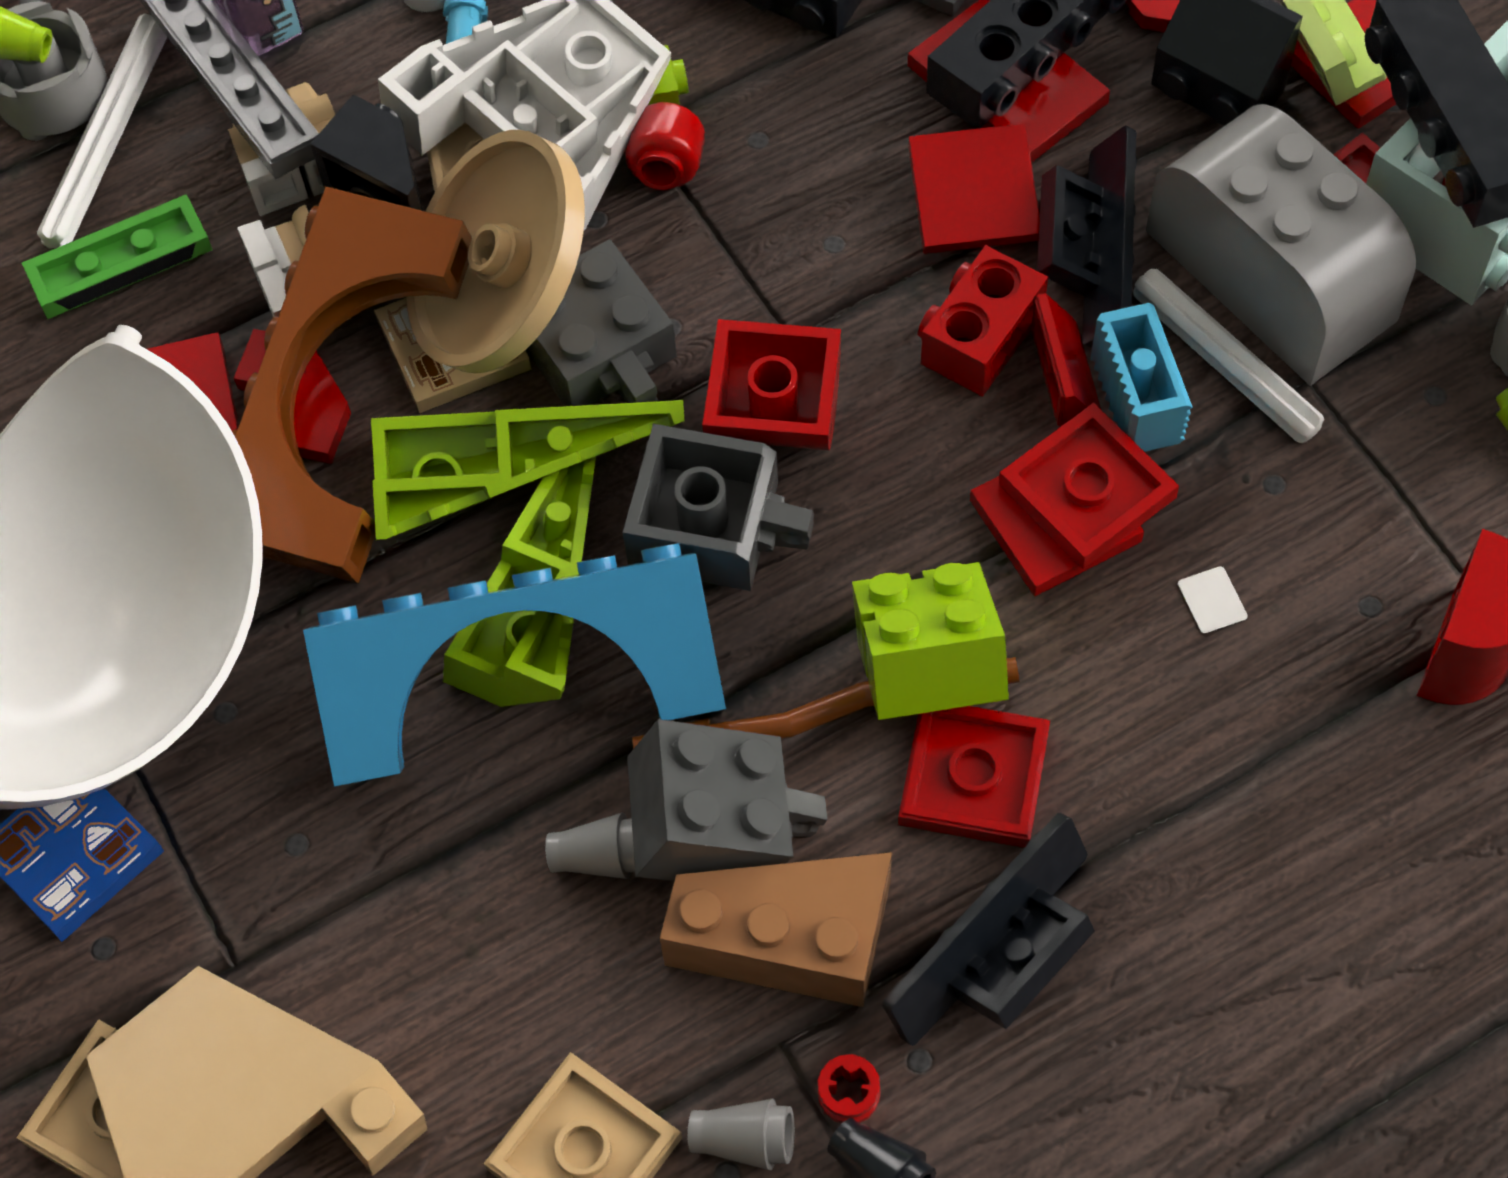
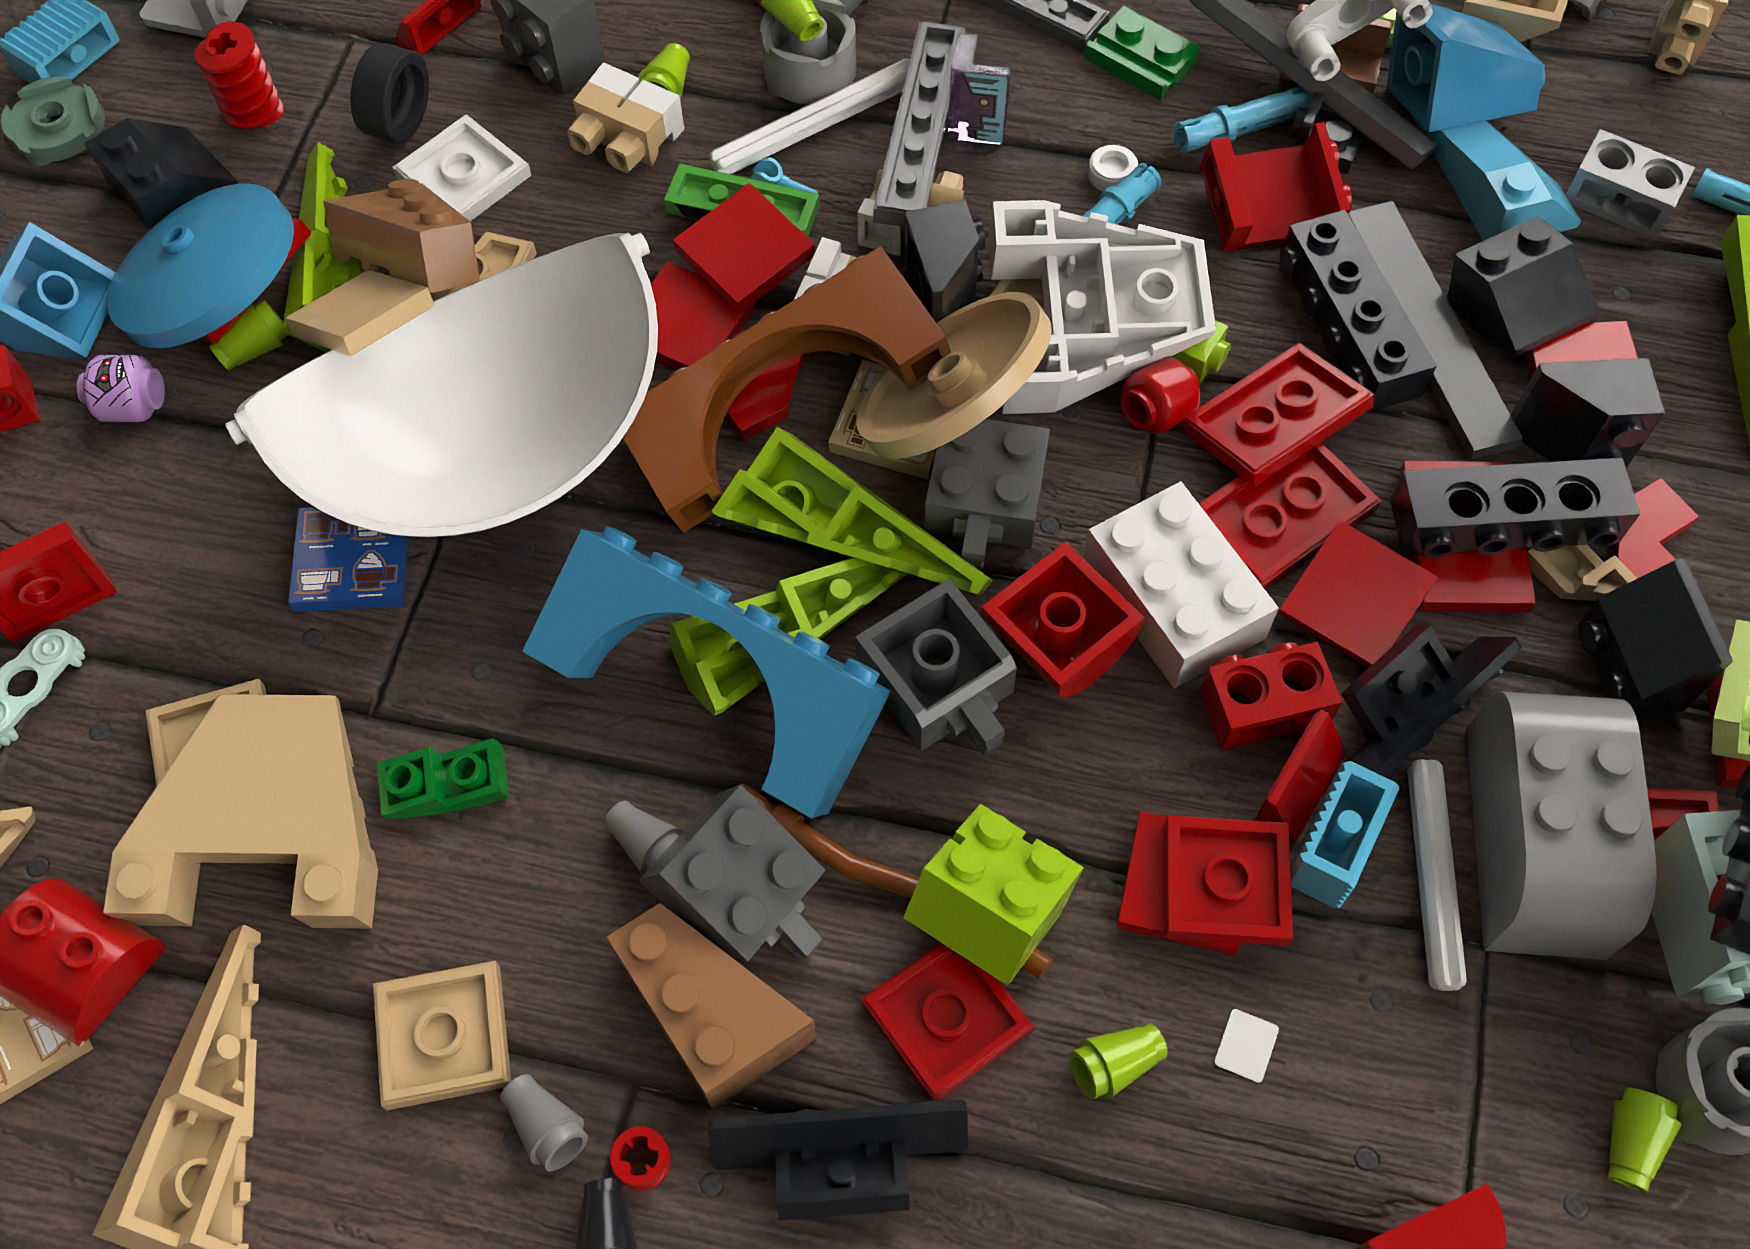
camera: 40 degrees right, 0 degrees up
(116, 208) = (770, 171): none -> medium azure hand
(169, 289) = (744, 247): none -> red tile
(366, 959) = (442, 783): none -> green slope
(772, 90) = (1277, 414): none -> red tile
(836, 276) = (1184, 582): none -> white brick
(848, 168) = (1289, 513): none -> red tile
(1121, 43) = (1578, 572): none -> tan slope
(1134, 690) = (1116, 1059): none -> lime cone

